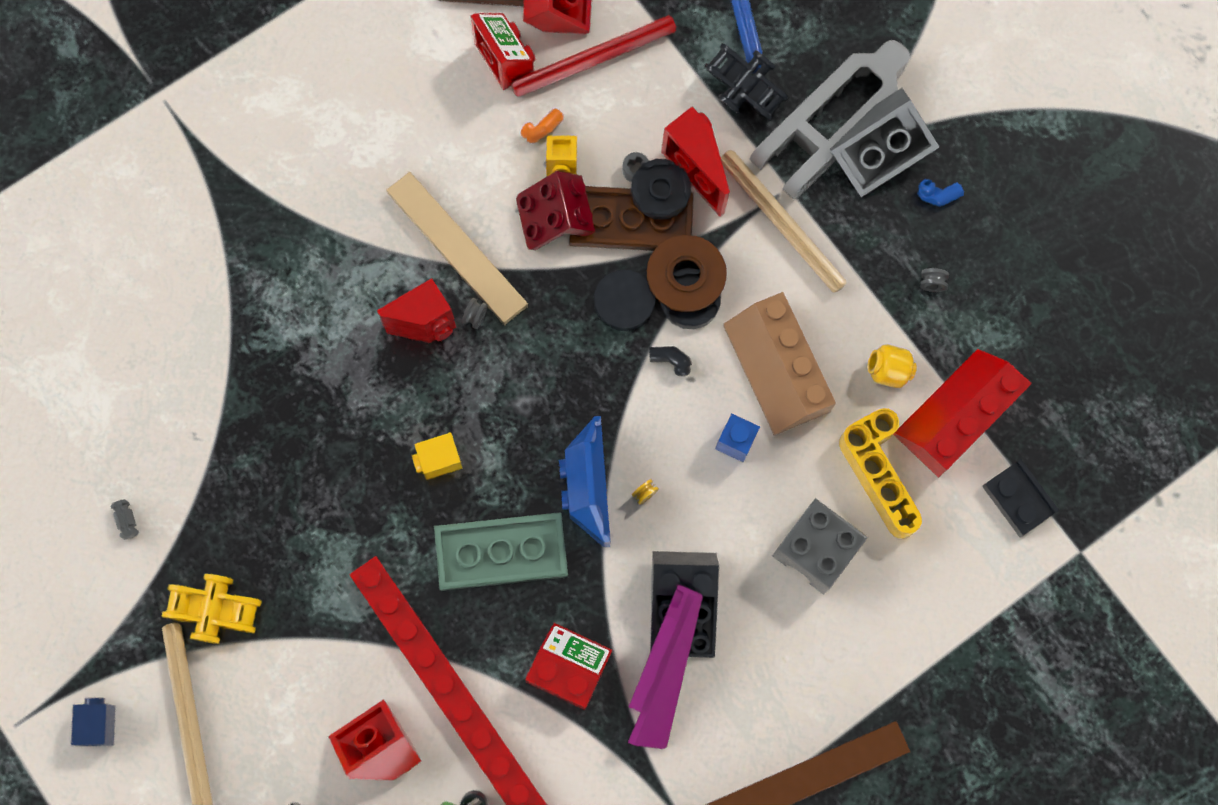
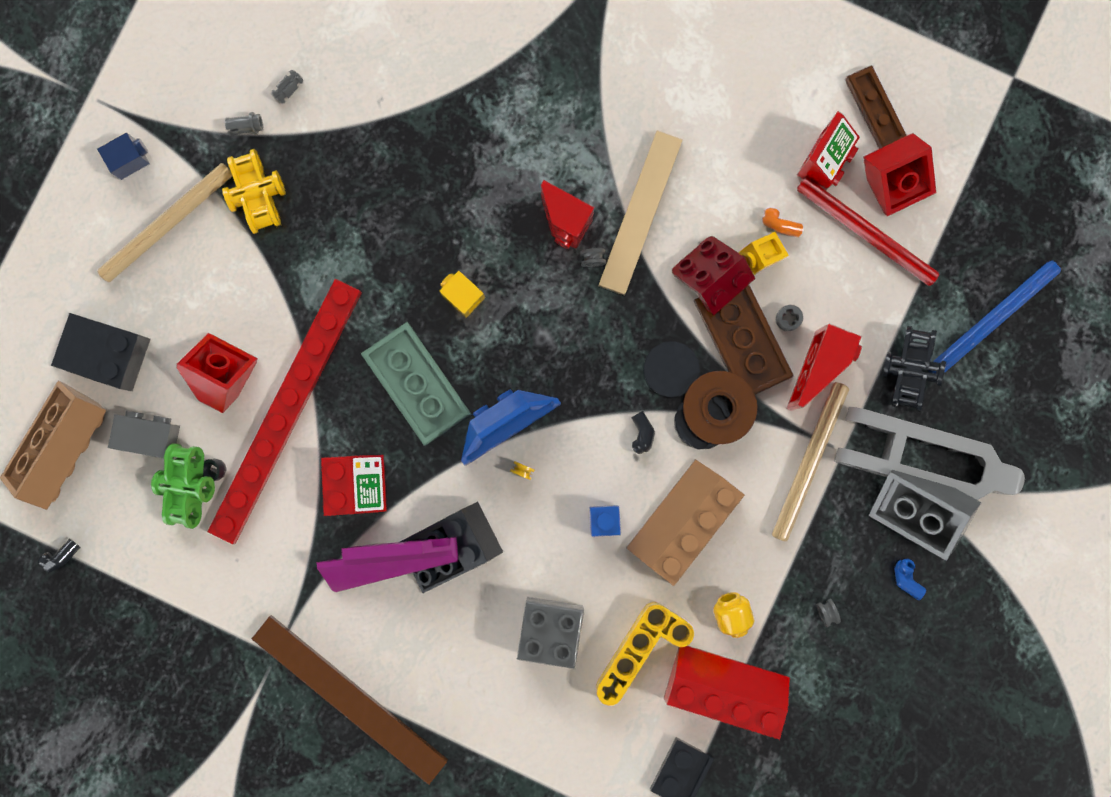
camera: 65 degrees right, 10 degrees up
(136, 583) = (244, 124): none -> dark grey pin
(660, 189) = (780, 348): black tile -> none

